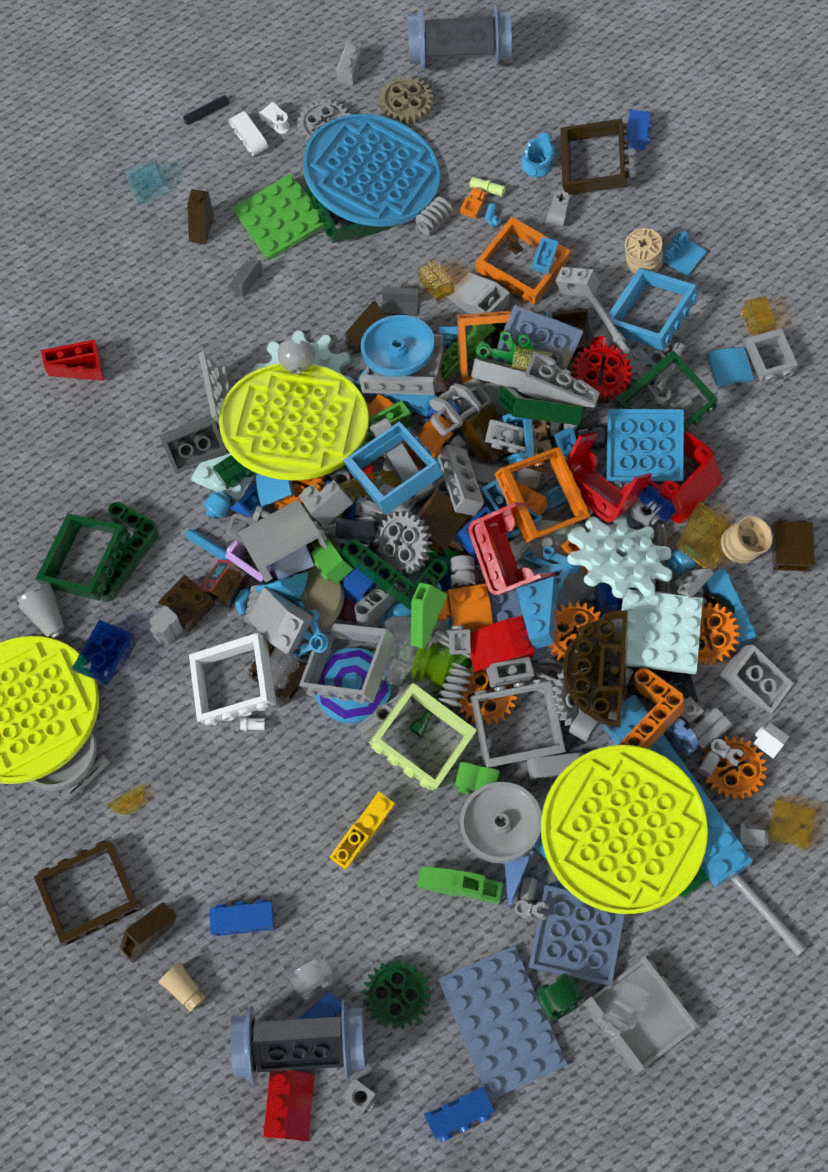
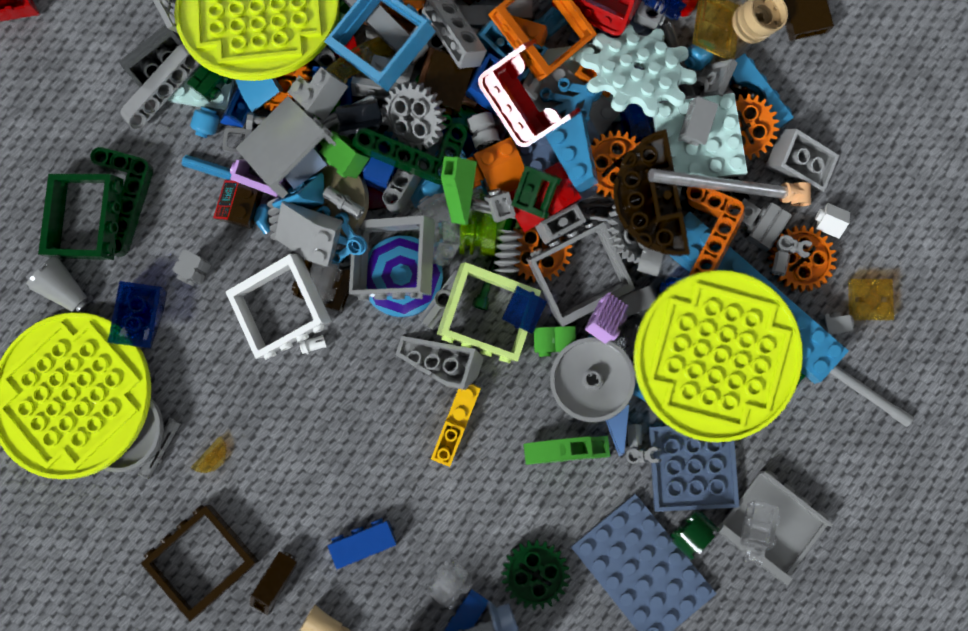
camera: 20 degrees left, 15 degrees up
(187, 602) = (205, 237): dark brown brick -> none
(195, 457) = (159, 87): none -> light grey beam
(318, 601) = (343, 202): none -> light grey pin
(367, 770) = (444, 362): none -> light grey wedge
(455, 742) = (524, 310): none -> clear blue piece
(488, 633) = (530, 188): none -> dark green plate
(529, 768) = (607, 318): none -> lavender brick
(660, 613) = (698, 121): none -> light grey hinge
(681, 737) = (746, 243): medium blue plate -> none
(743, 706) = (796, 193): none -> flat silver piece

